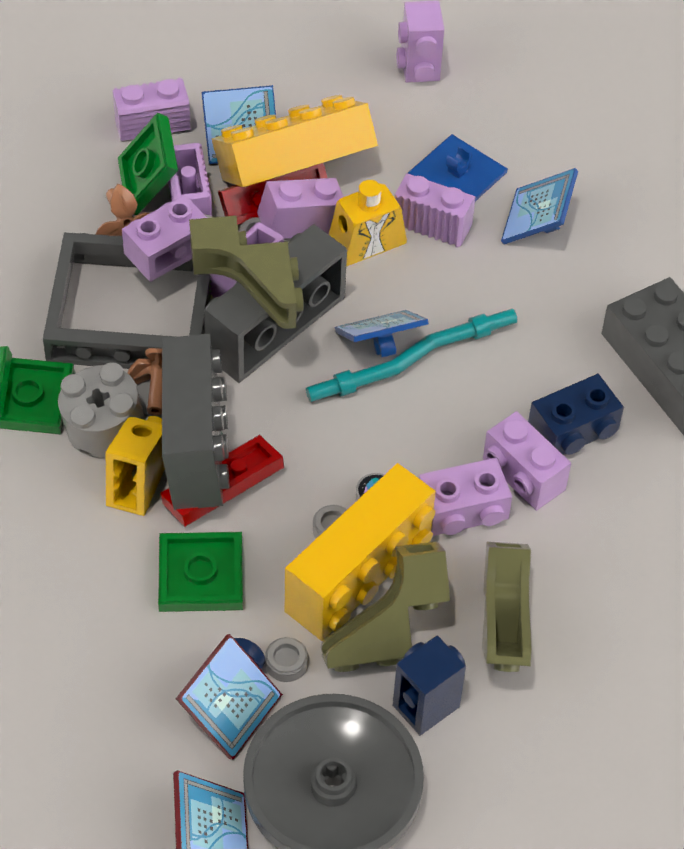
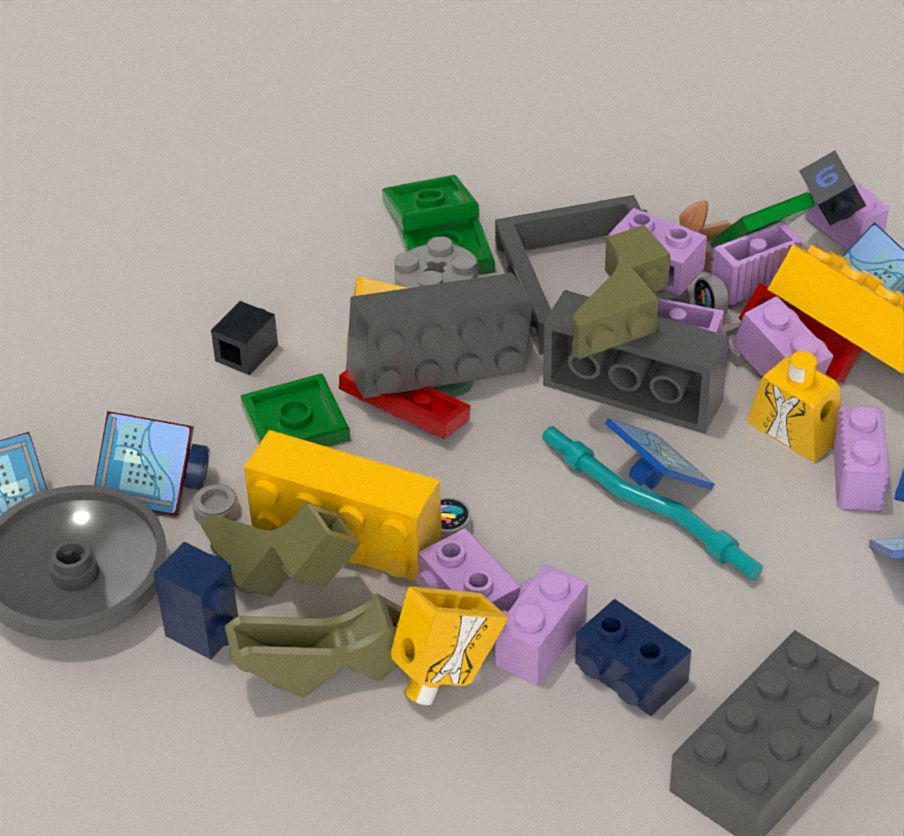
camera: 75 degrees right, 10 degrees down
(86, 579) = (244, 337): none -> black brick
(159, 95) = (832, 188): none -> black brick
(543, 519) = (443, 638): none -> yellow torso

